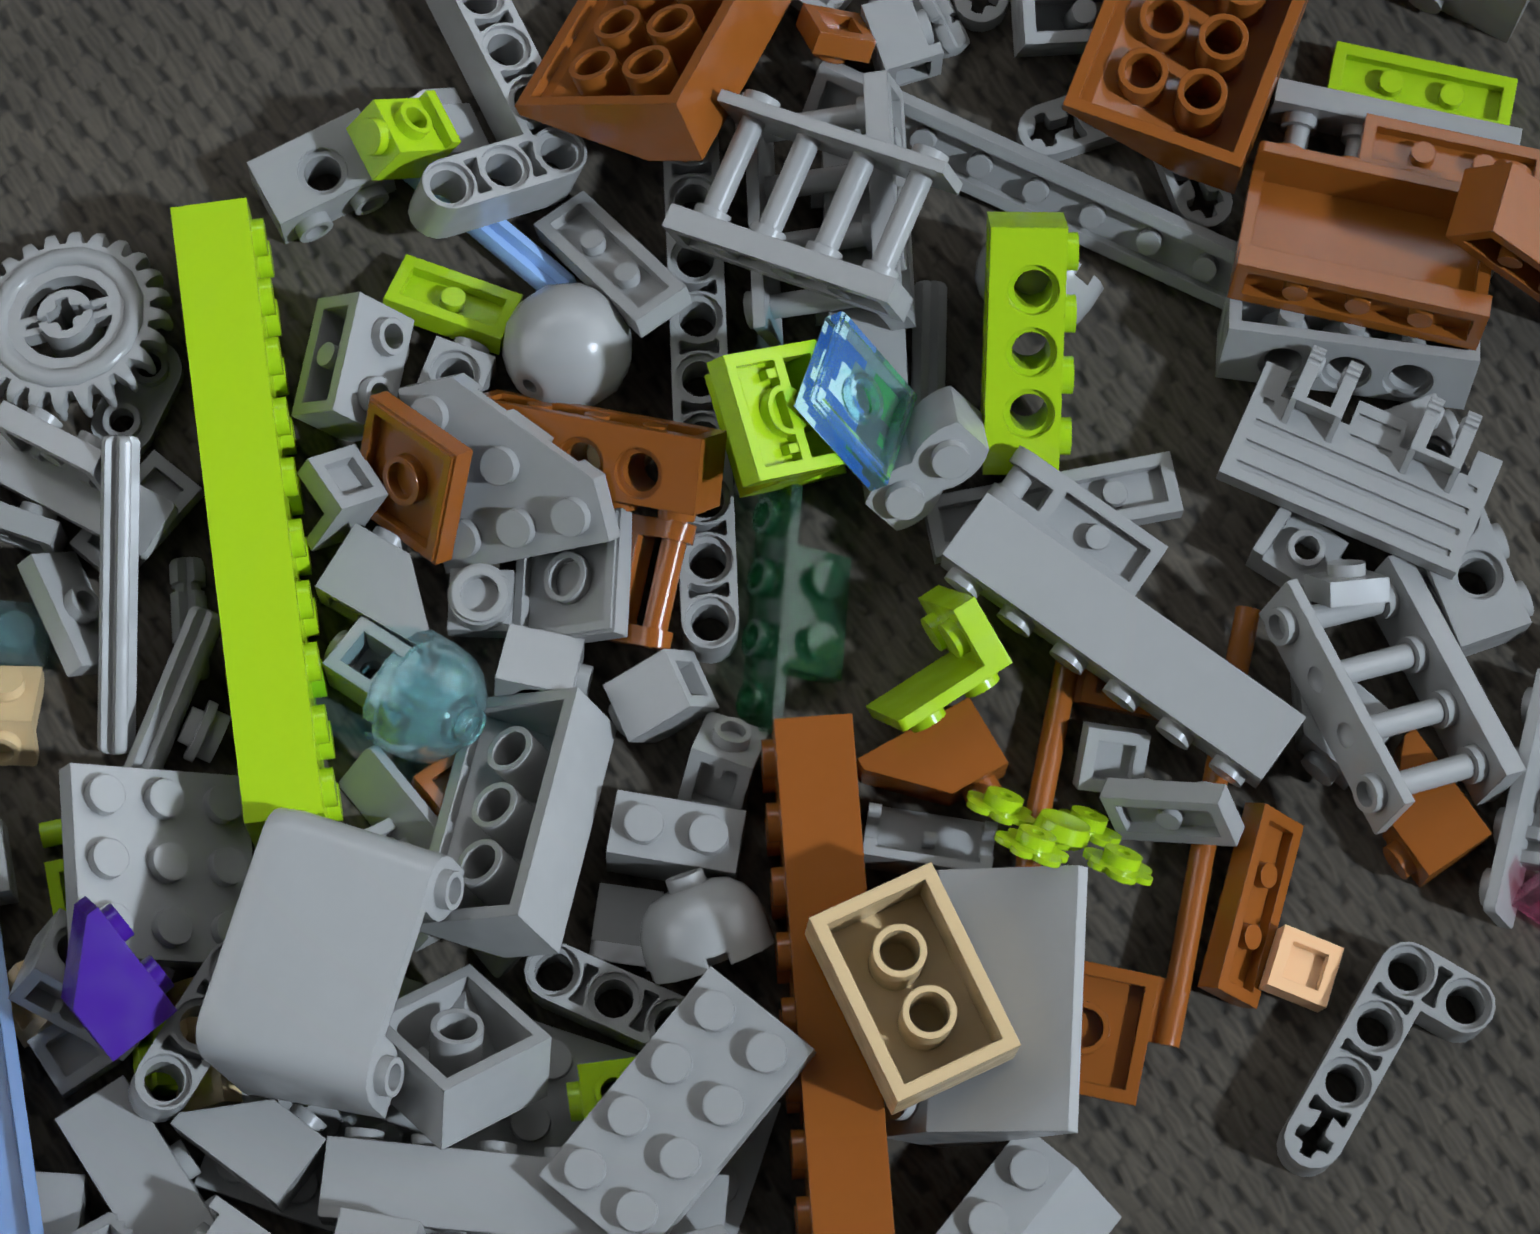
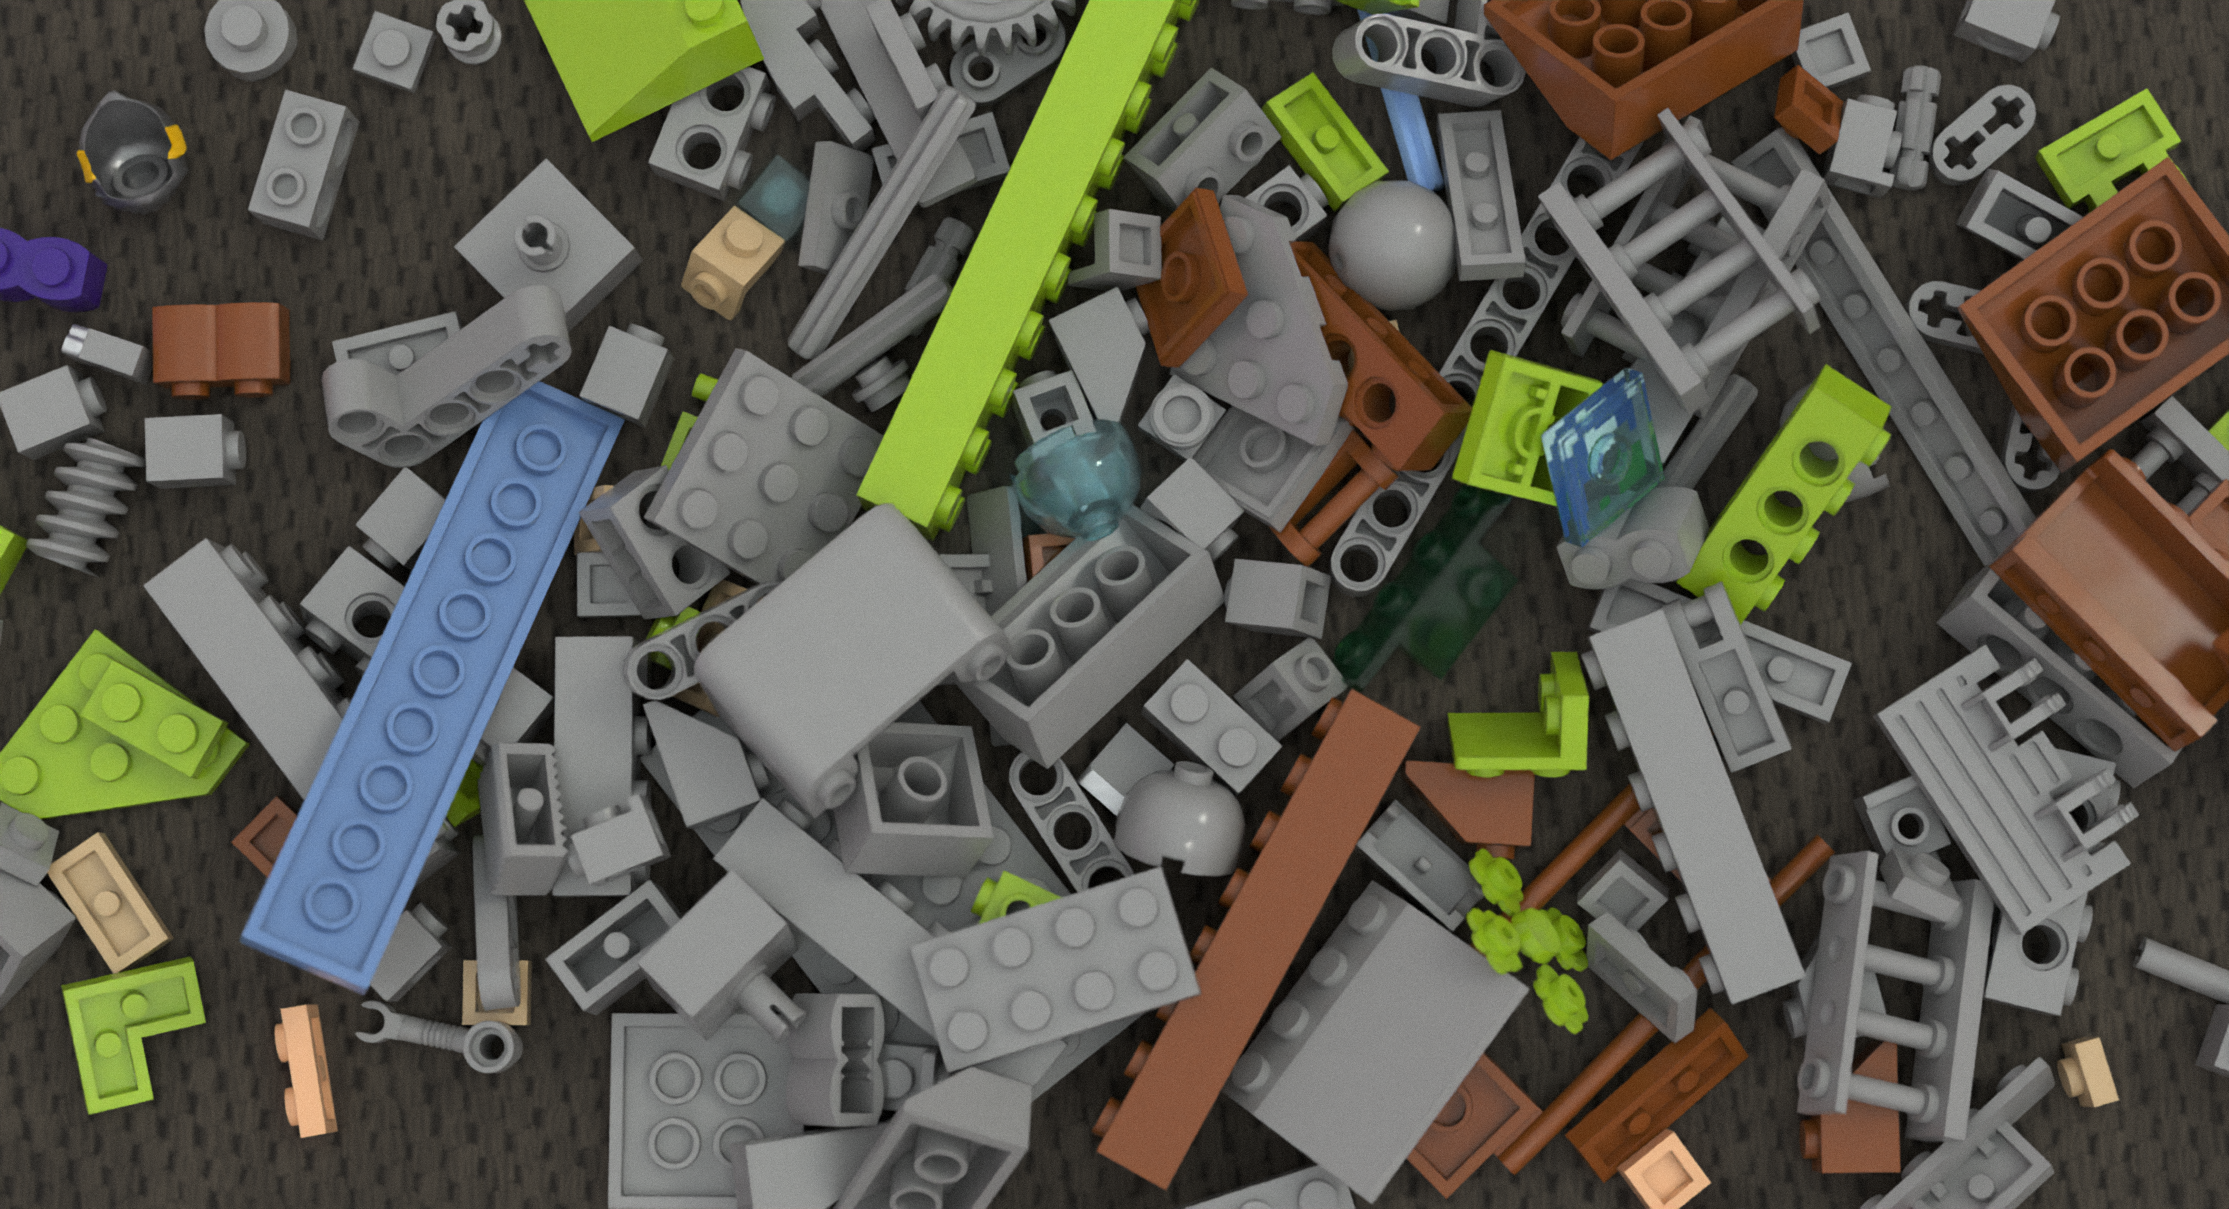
camera: 40 degrees right, 10 degrees up
(108, 985) = (659, 562): dark purple slope -> none
(911, 988) = (1311, 999): tan brick -> none

